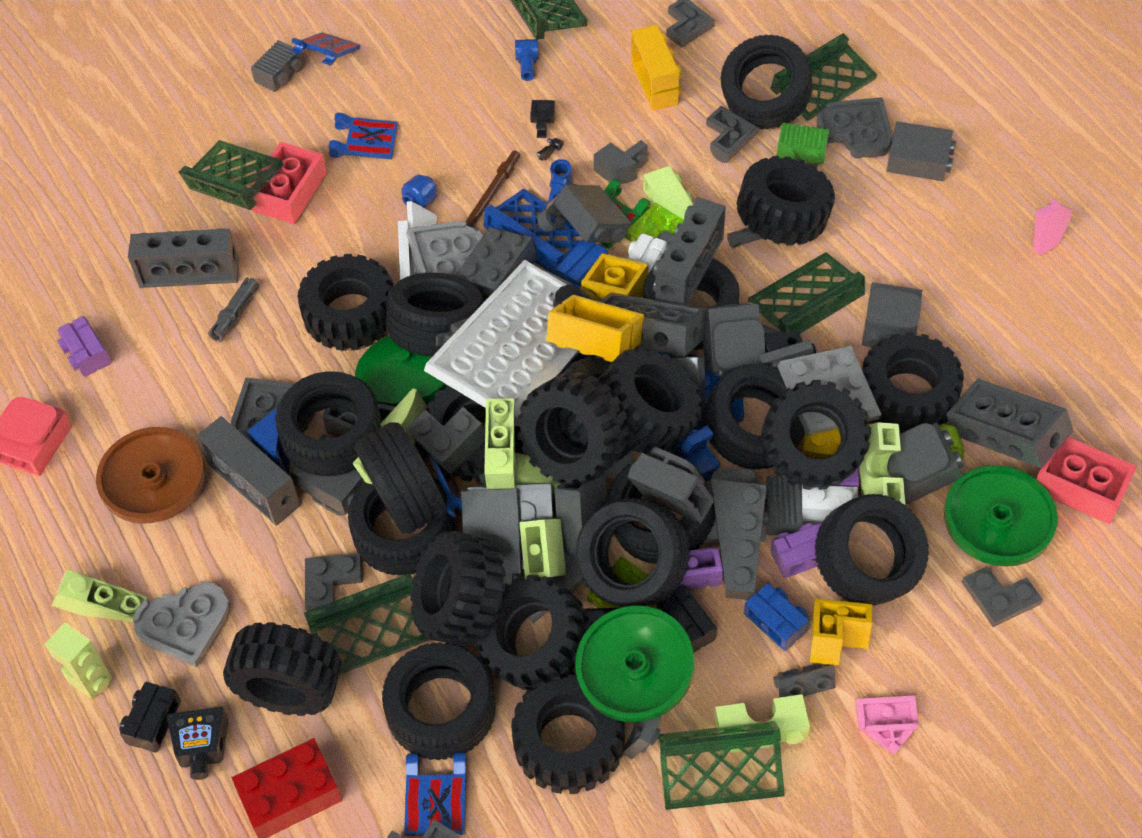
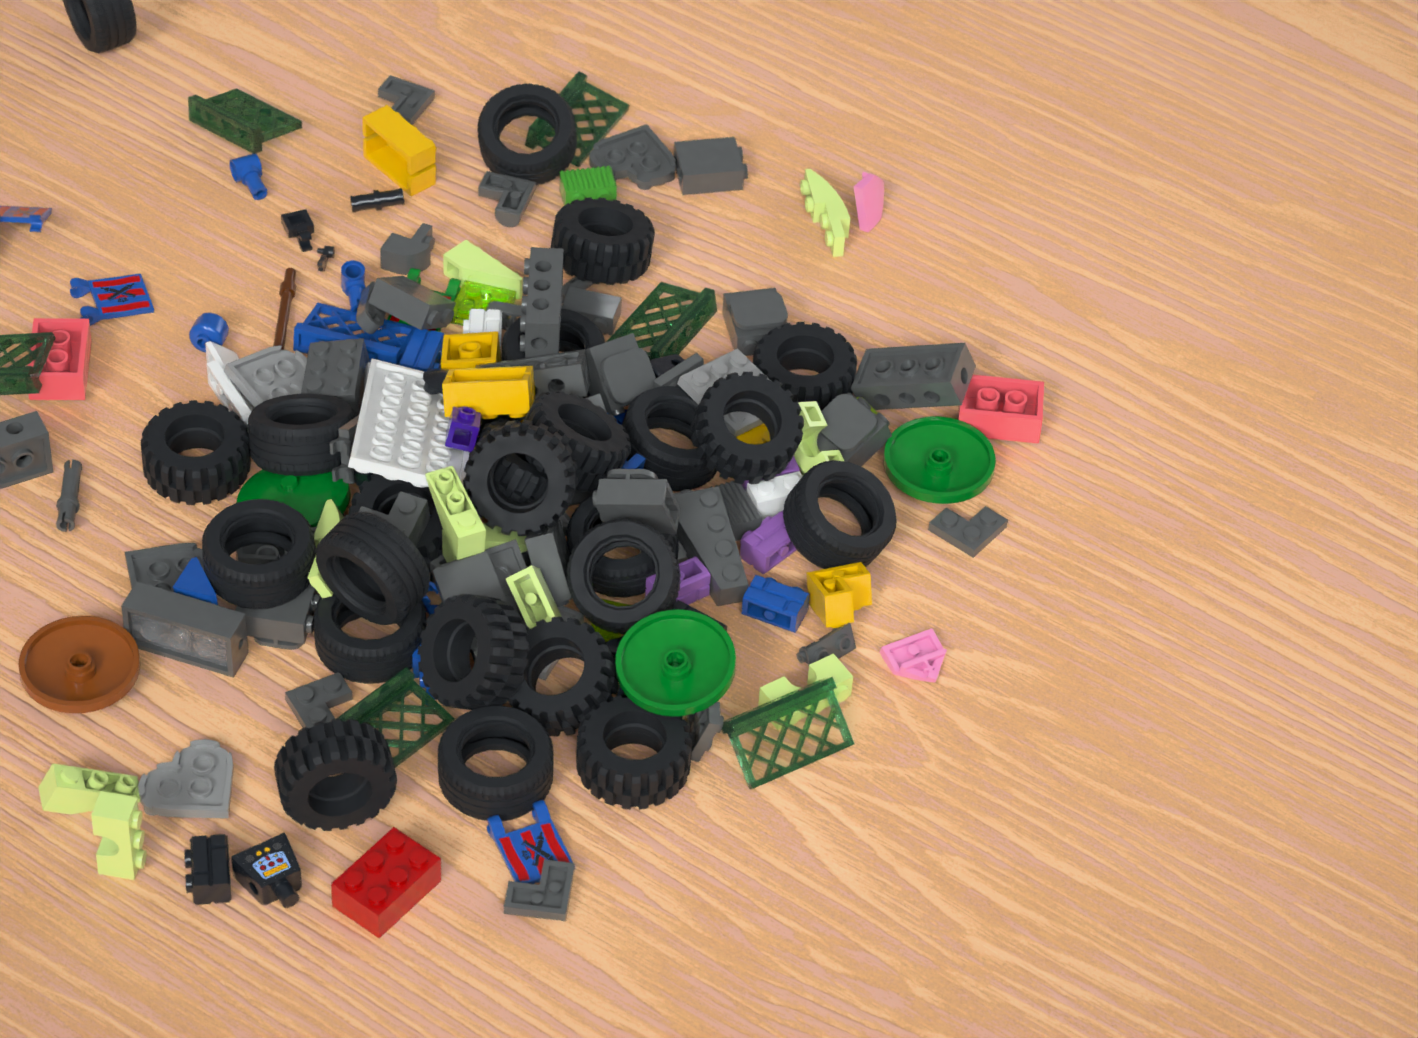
camera: 30 degrees left, 10 degrees down
(552, 358) = (462, 428): none -> dark purple brick
(618, 107) = (377, 200): none -> black pin
(749, 263) = (598, 307): none -> dark grey brick
(1008, 223) = (826, 208): none -> yellowish green slope

